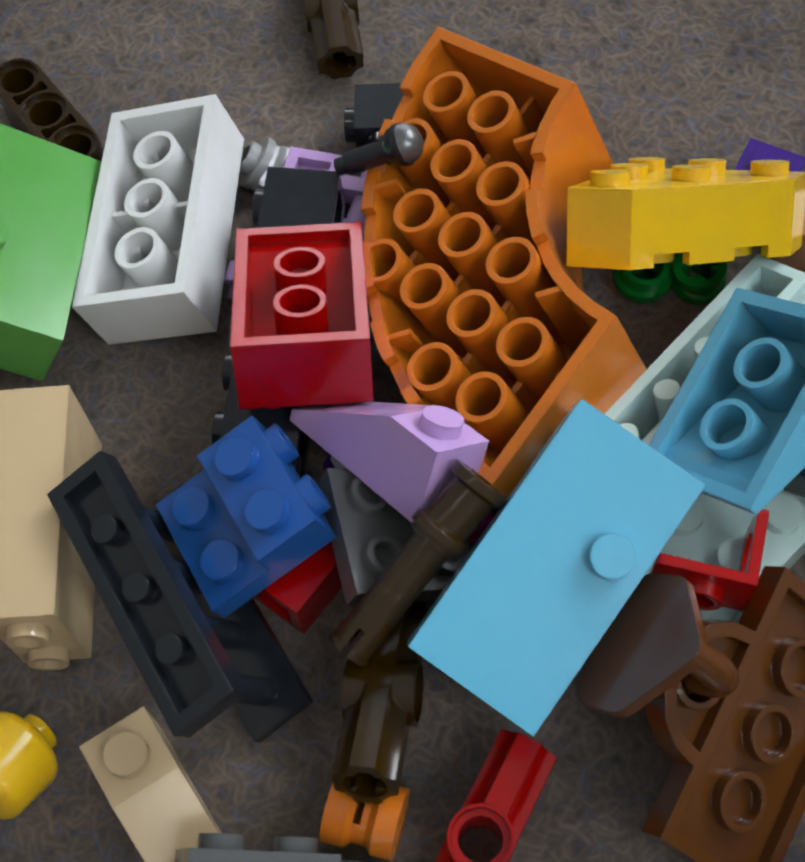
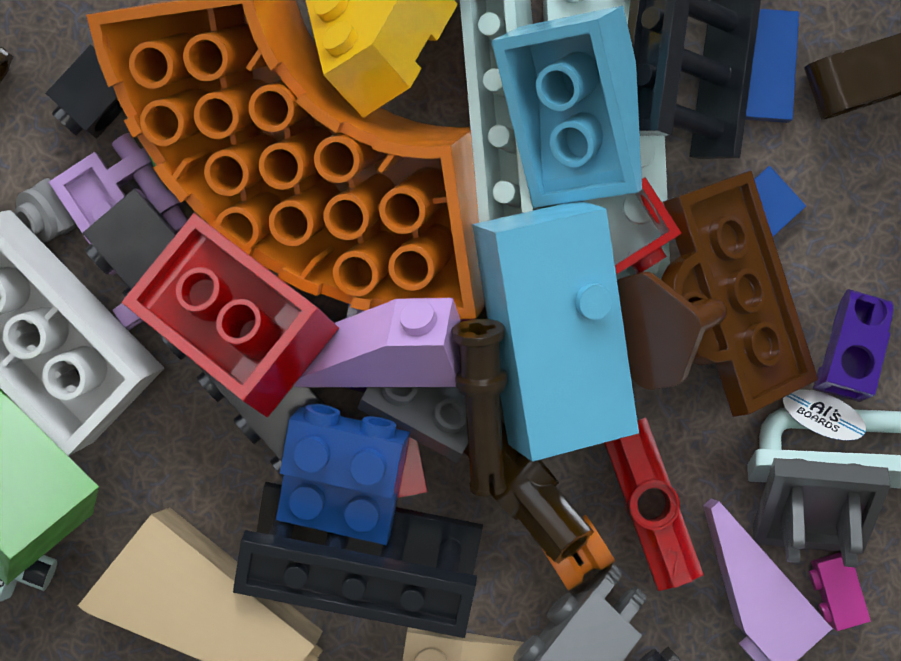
camera: 55 degrees left, 25 degrees up
(397, 146) = (166, 139): black piece -> none

